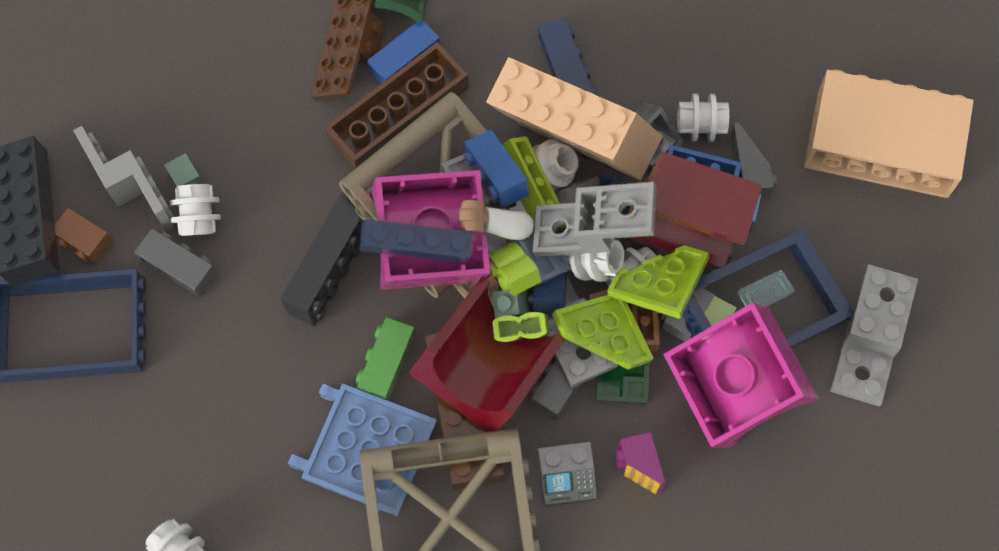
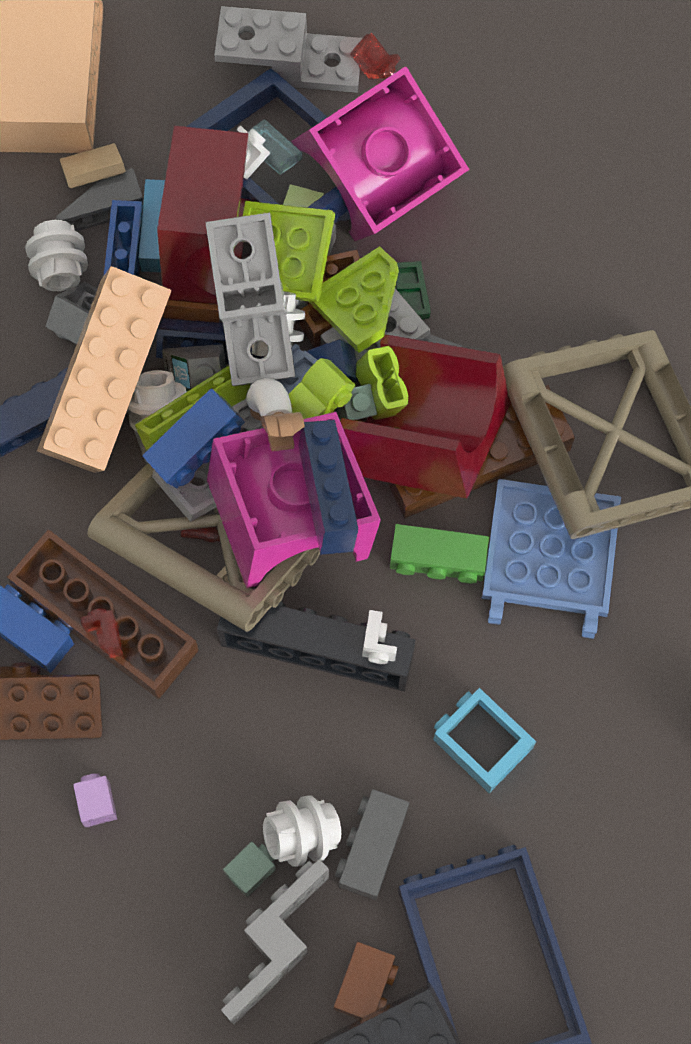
camera: 105 degrees left, 0 degrees up
(240, 376) = (505, 765): none -> medium azure window
(263, 82) = (94, 800): none -> lavender brick
(314, 277) = (376, 633): none -> white bracket
(372, 99) = (109, 635): none -> clear red bracket
(567, 473) = (520, 327): flat silver slope -> none
(640, 462) = (491, 250): magenta slope -> none
(760, 267) = (256, 151): none -> white bracket
(784, 158) = (92, 165): none -> tan tile
(856, 407) = (373, 58): none -> clear red bracket

